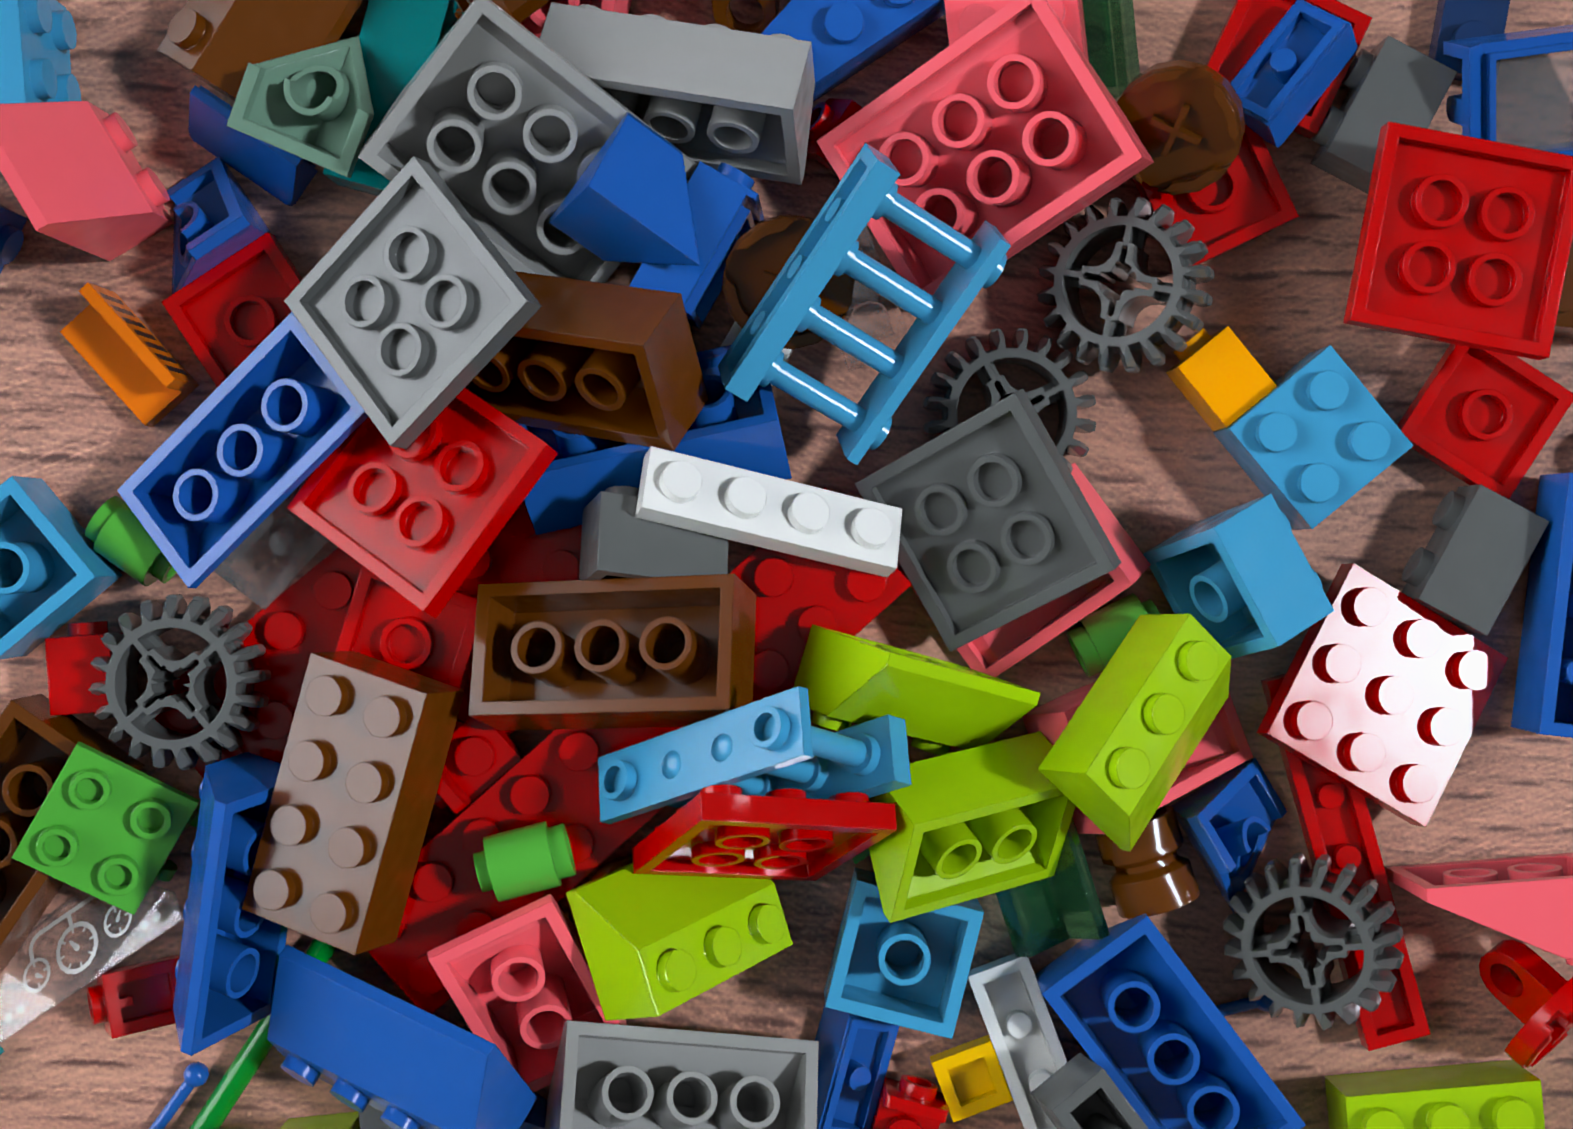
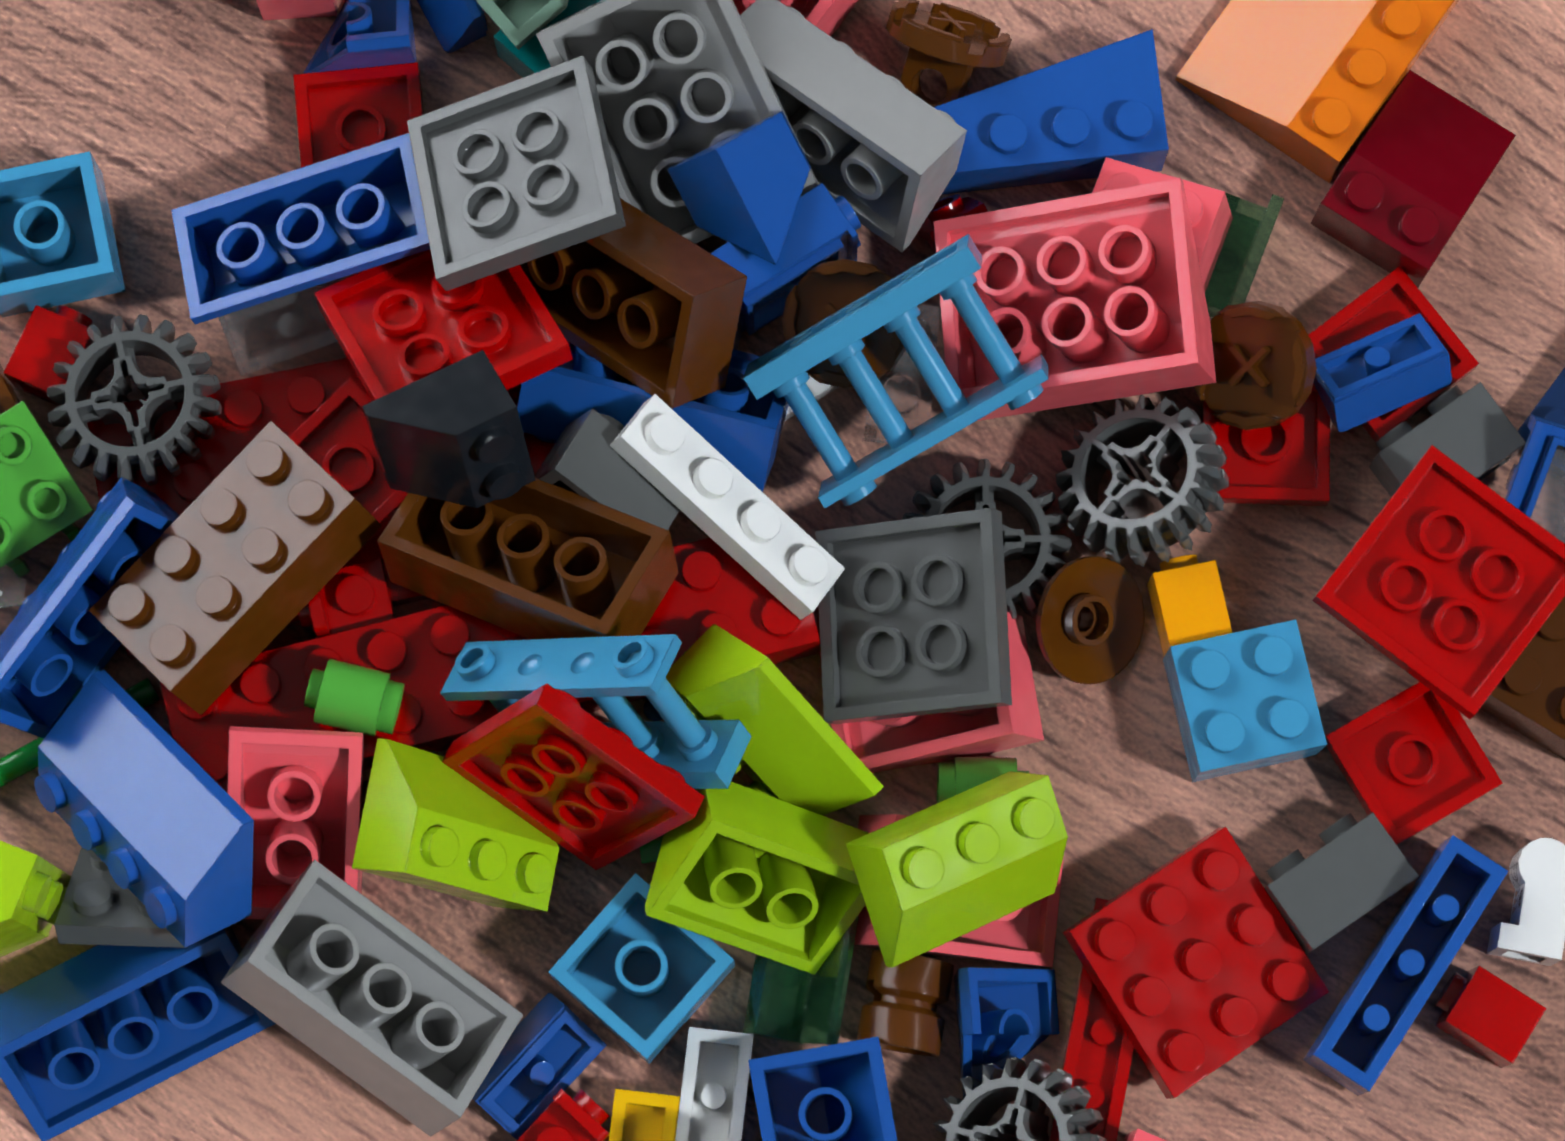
camera: 25 degrees right, 10 degrees down
(127, 544) = (153, 265): bright green brick -> none
(128, 356) = (236, 108): orange panel -> none
(484, 589) = (452, 436): none -> black slope
(1138, 435) = (1108, 624): none -> reddish brown dish
(1241, 577) = (1115, 781): dark azure brick -> none

